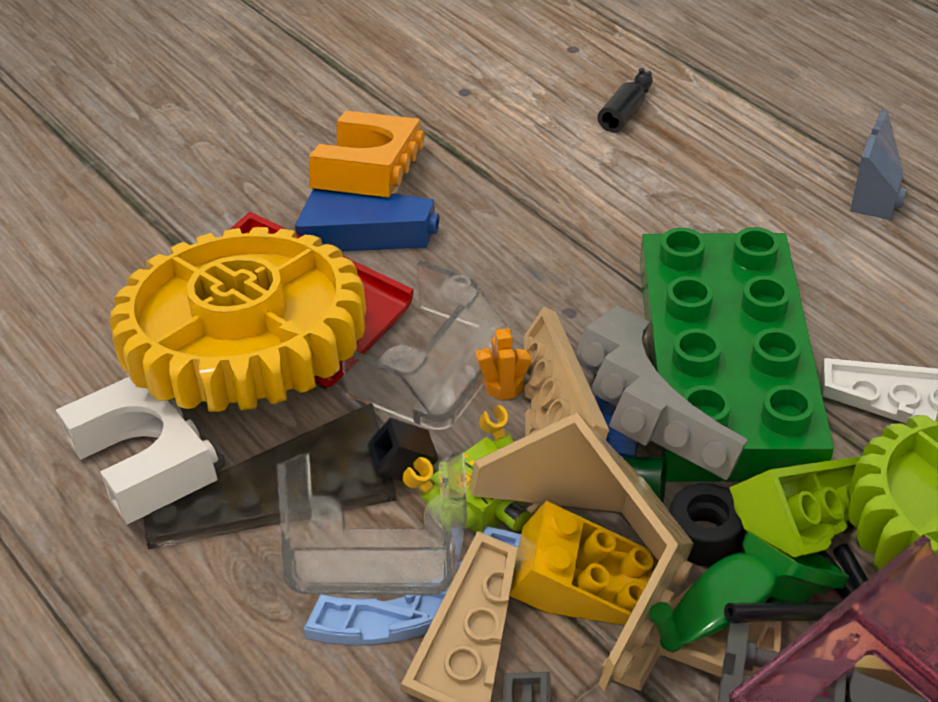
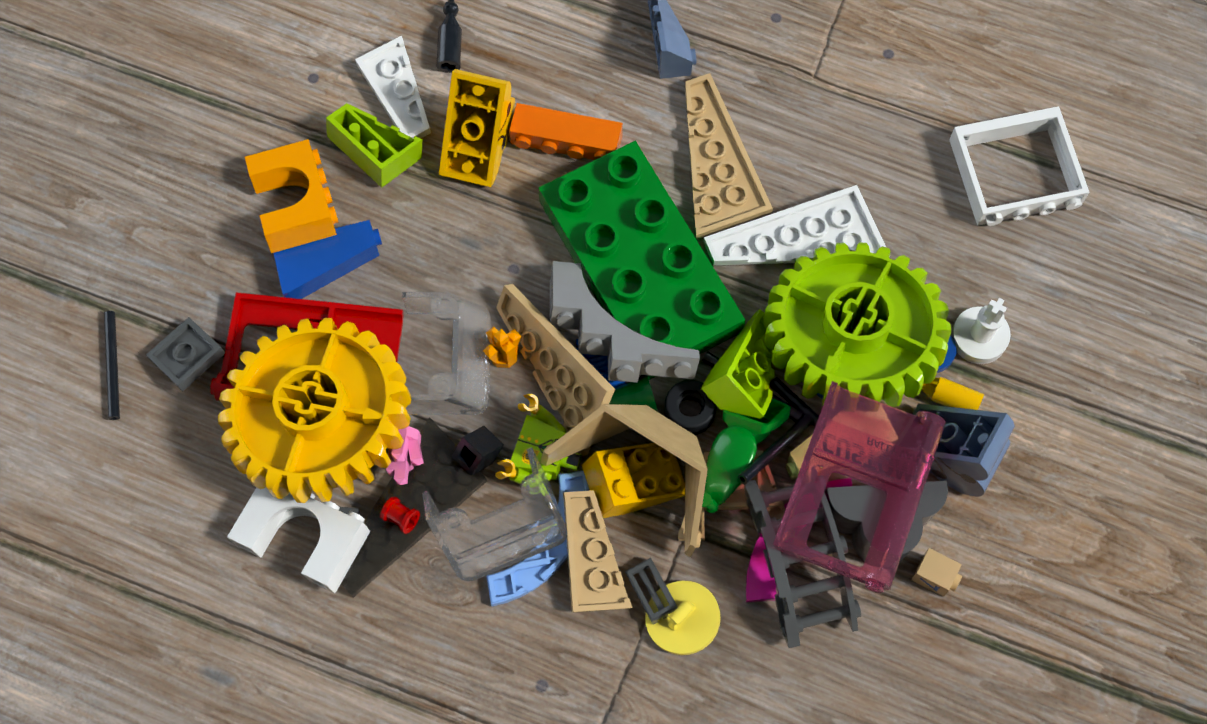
camera: 30 degrees left, 25 degrees up
(80, 232) = (111, 365): none -> black piece
(153, 239) = (185, 354): none -> dark grey plate
(259, 469) = (400, 515): none -> red bush
(312, 412) = (406, 457): none -> bright pink rock
(485, 150) = (372, 145): none -> lime wedge
(542, 120) = (393, 82): none -> white wing
(608, 157) = (476, 127): none -> yellow brick
(699, 204) = (564, 132): none -> orange brick
(883, 302) = (722, 174): none -> tan wing

